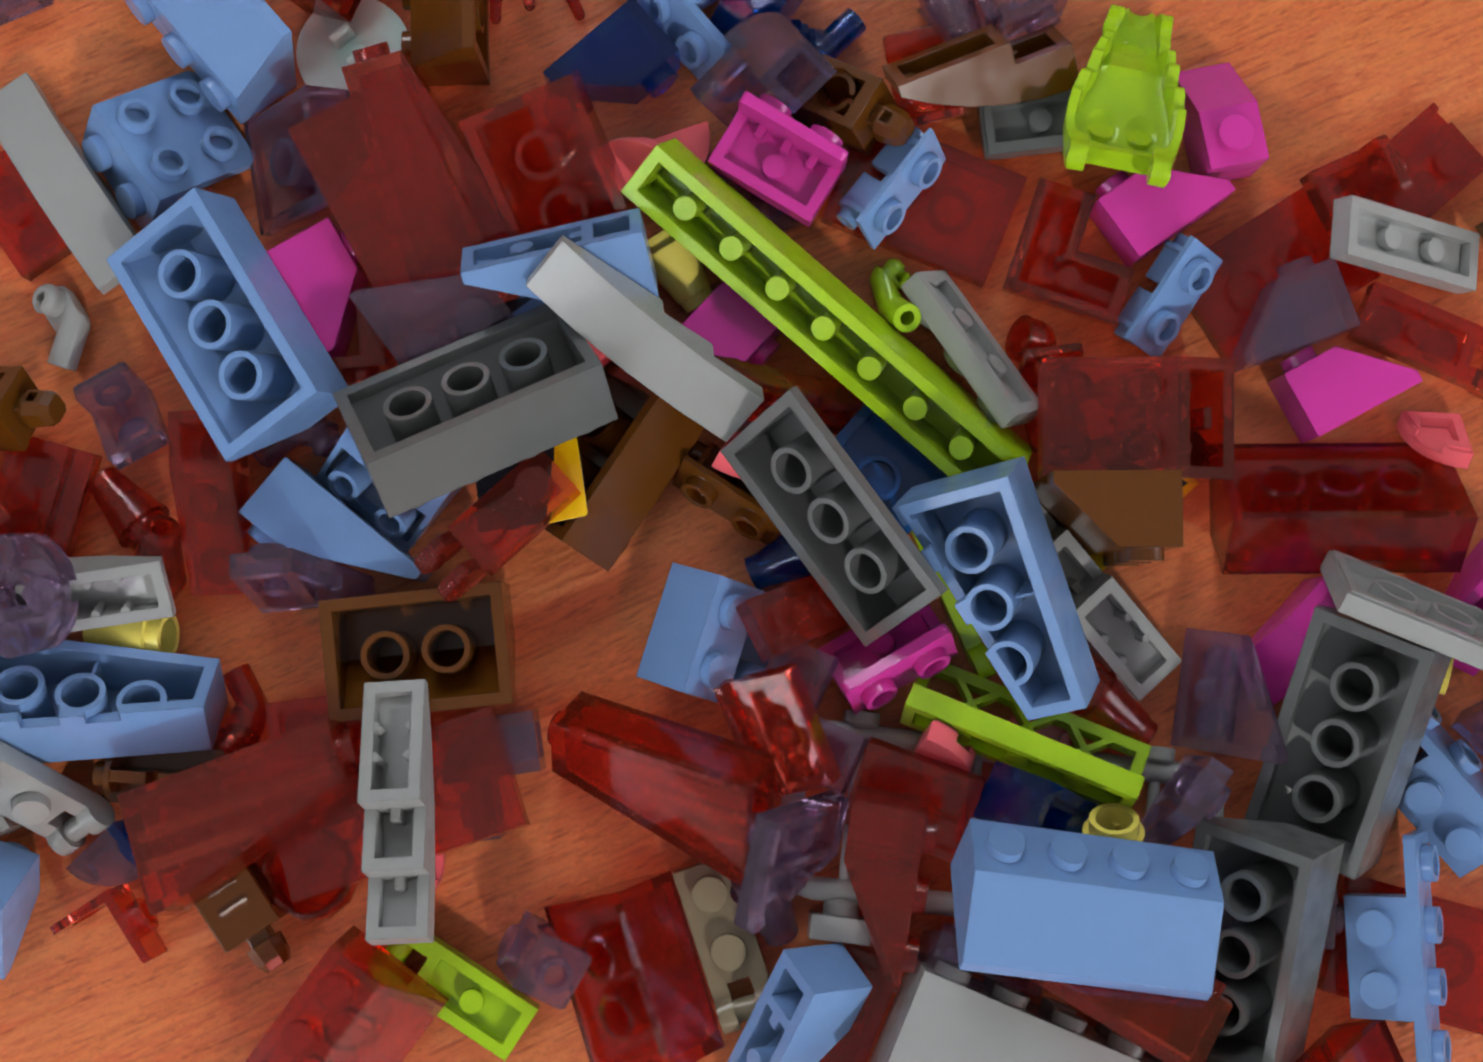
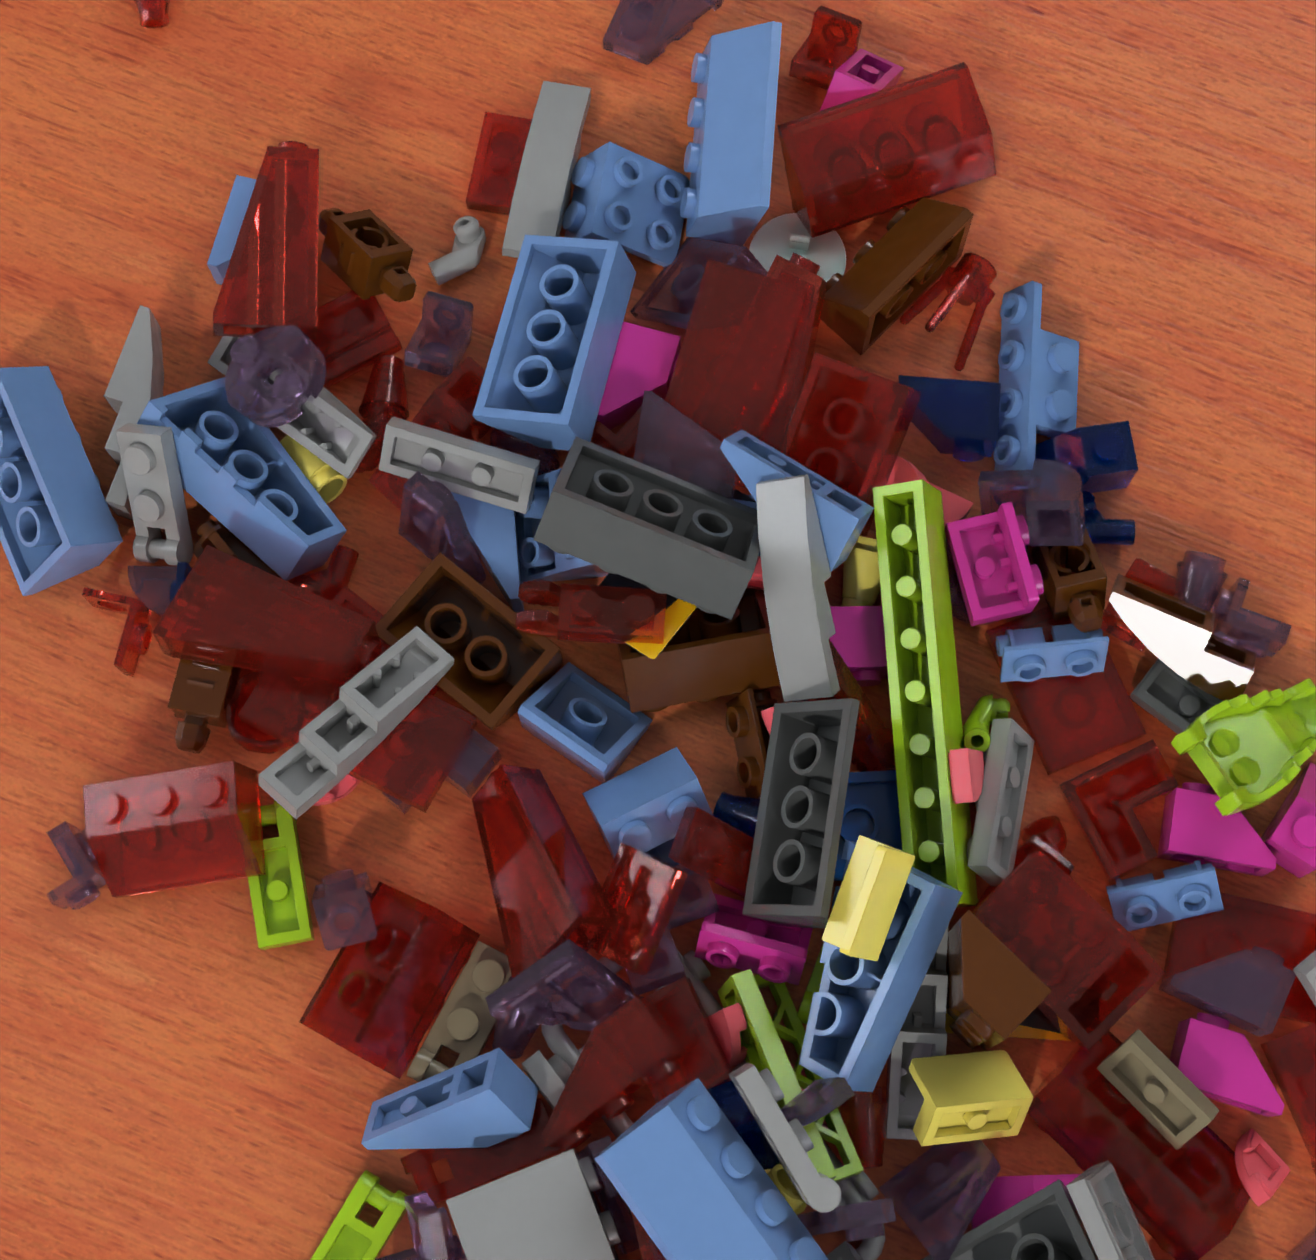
camera: 50 degrees right, 10 degrees down
(257, 512) = (460, 464): none -> light grey plate
(575, 614) = (583, 722): none -> medium blue slope
(930, 356) = (966, 774): none -> coral tile
(961, 540) = (868, 898): none -> light yellow panel
(1076, 739) = (818, 1100): none -> clear purple tile
(1087, 794) = (786, 1138): none -> light grey plate
(1176, 608) = (969, 1097): none -> light yellow panel
(1315, 456) = (1158, 1089): none -> dark tan plate

